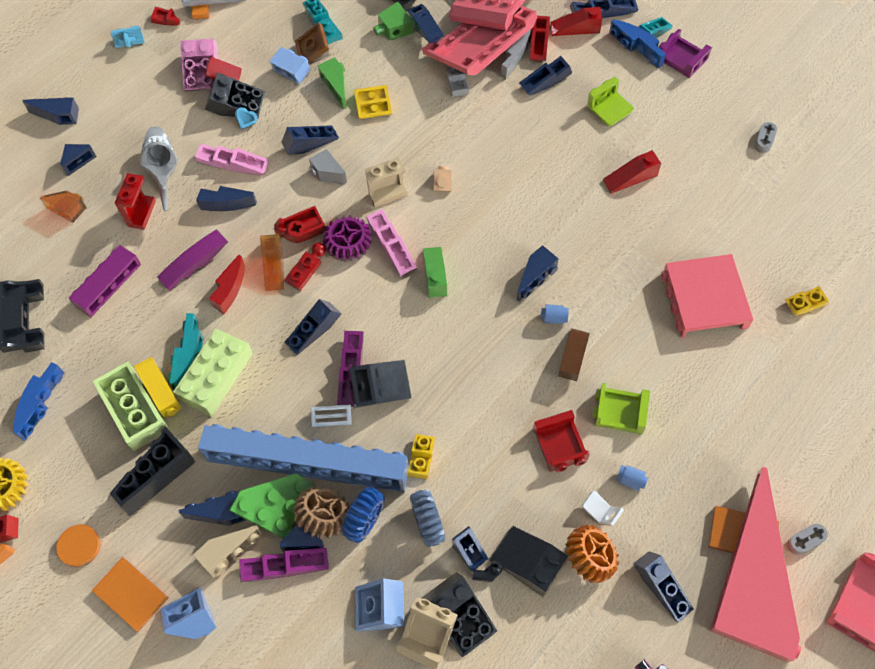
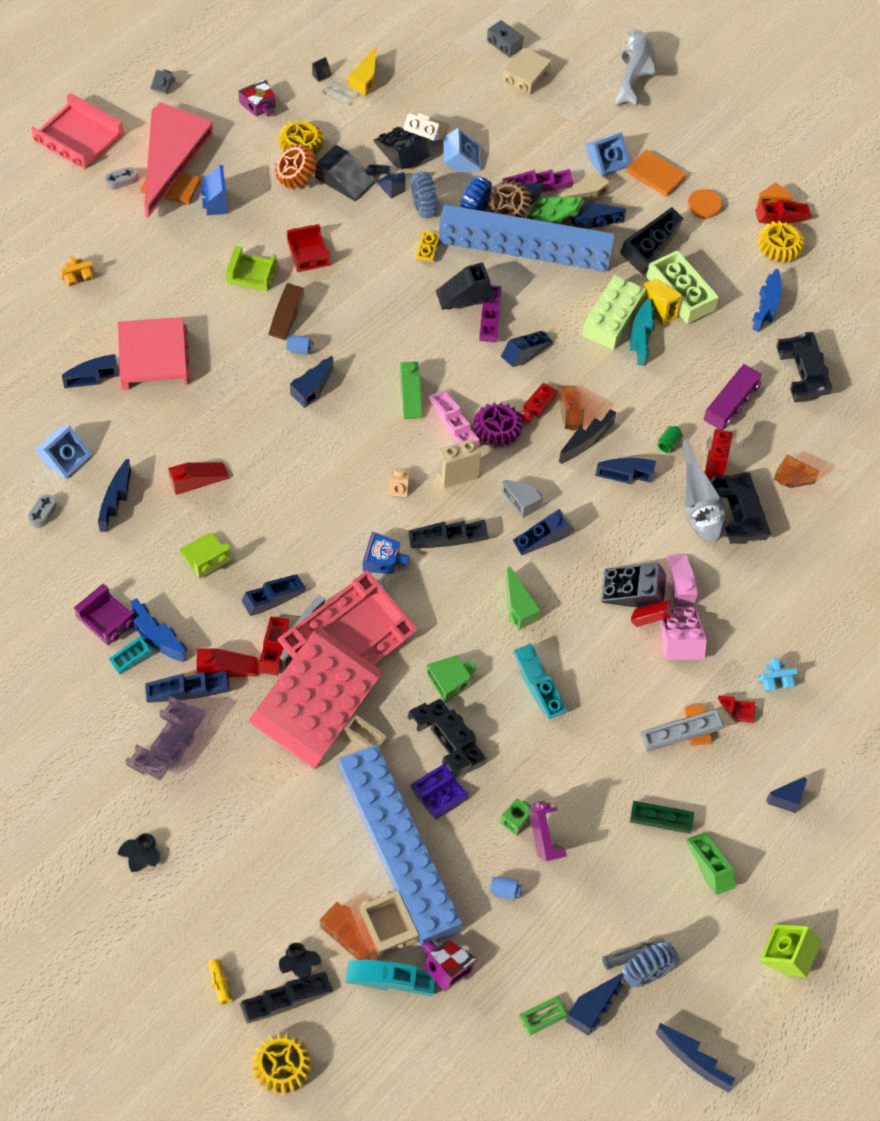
camera: 175 degrees right, 5 degrees down
(57, 110) = (836, 581): dark blue slope -> none
(76, 156) = (797, 526): dark blue slope -> none
(119, 158) = (746, 508): none -> black bracket
(178, 233) = (670, 439): none -> green brick
(190, 260) = (649, 411): magenta slope -> none
(191, 106) = (682, 580): none -> bright pink slope
(228, 285) = (612, 385): red slope -> none
(232, 160) = (627, 516): bright pink slope -> none
(245, 118) = (619, 560): medium azure tile -> none
(262, 226) = (584, 439): none -> black slope
(290, 65) = (573, 619): light blue brick -> none
(306, 222) = (545, 436): red piece -> none
(312, 43) = (550, 646): dark orange tile -> none
(336, 423) = (500, 278): white tile -> none
(373, 102) = (475, 577): yellow slope -> none
(396, 135) = (448, 535): none -> black slope
(425, 23) = (412, 655): dark blue slope -> none
(454, 111) = (383, 555): none -> blue torso
(589, 606) = (301, 133): none -> yellow gear
(600, 509) = (281, 202): white bracket -> none
(632, 477) = (253, 220): medium blue brick -> none
(663, 585) = (244, 155): slope -> none
(685, 510) = (214, 192): none -> blue slope
(703, 150) = (115, 492): none -> dark blue slope
(763, 270) = (90, 372): none -> dark blue slope
(766, 187) = (63, 451): none -> light blue slope
(808, 301) = (56, 349): yellow slope -> none
(821, 393) = (76, 268): none -> light orange hips

